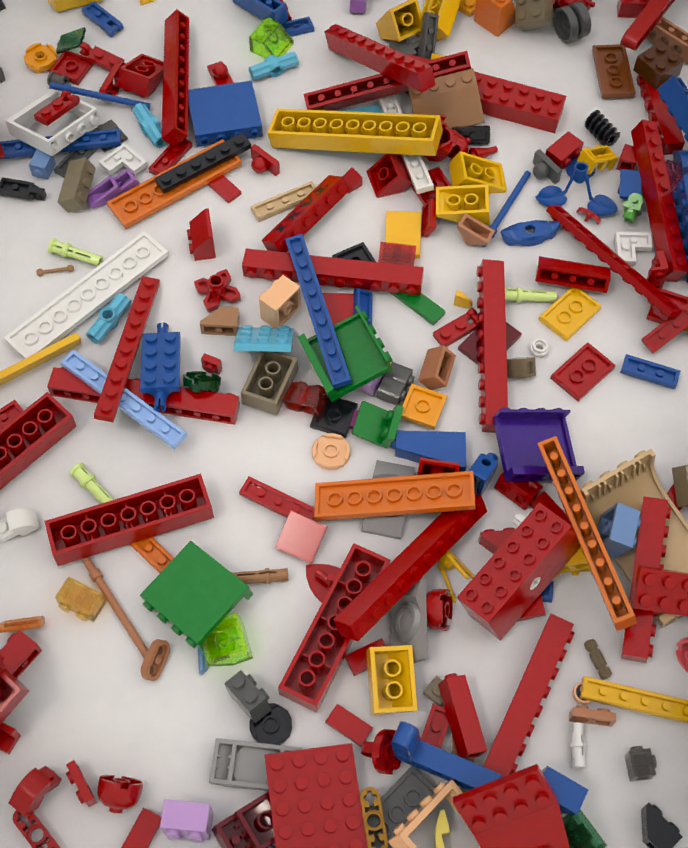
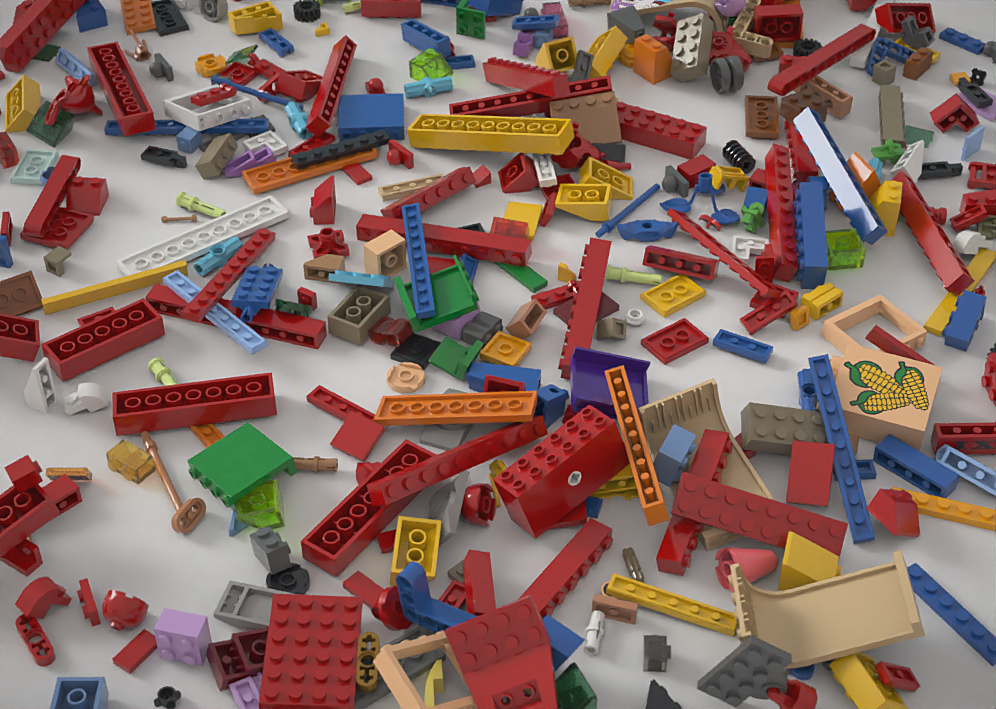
camera: 10 degrees right, 20 degrees down
(474, 231) = (589, 220): nougat slope -> none

